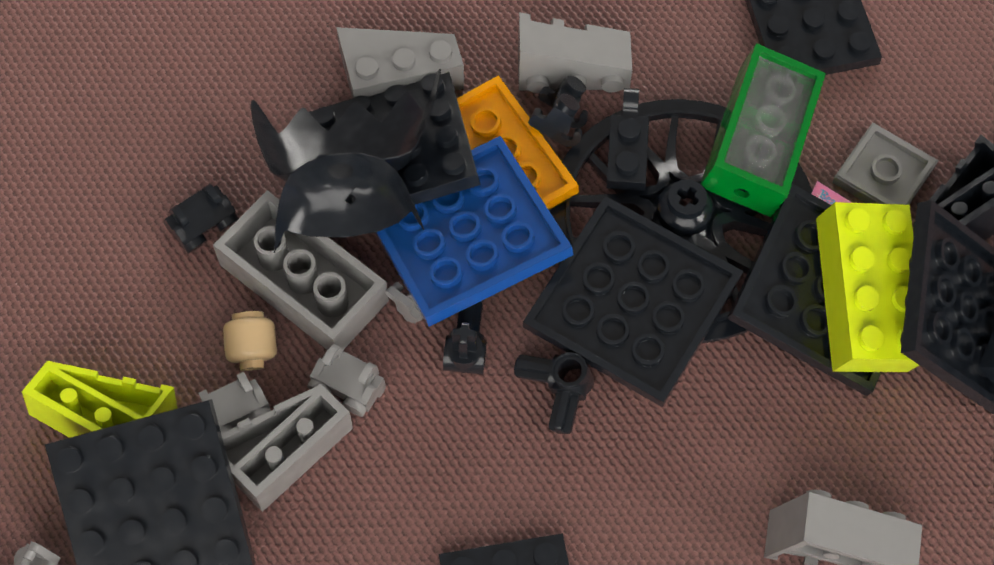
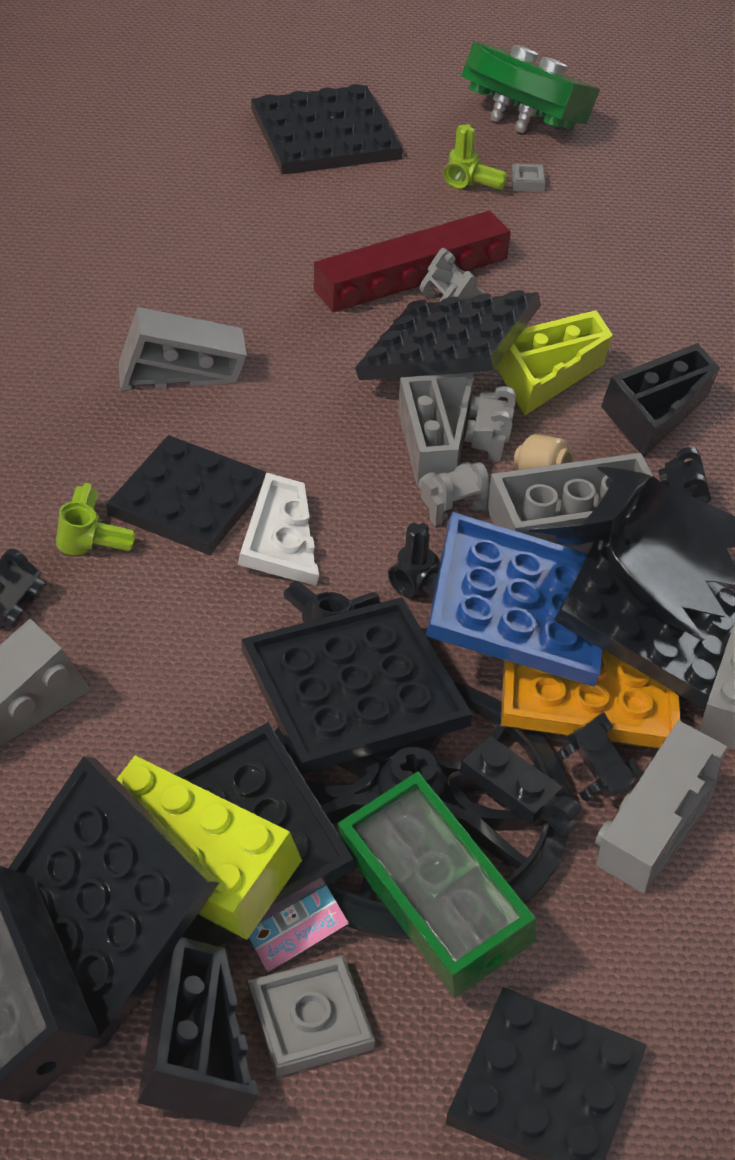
camera: 125 degrees right, 20 degrees down
(91, 292) = (659, 395): none -> black wedge
(502, 491) = (280, 533): none -> white wing

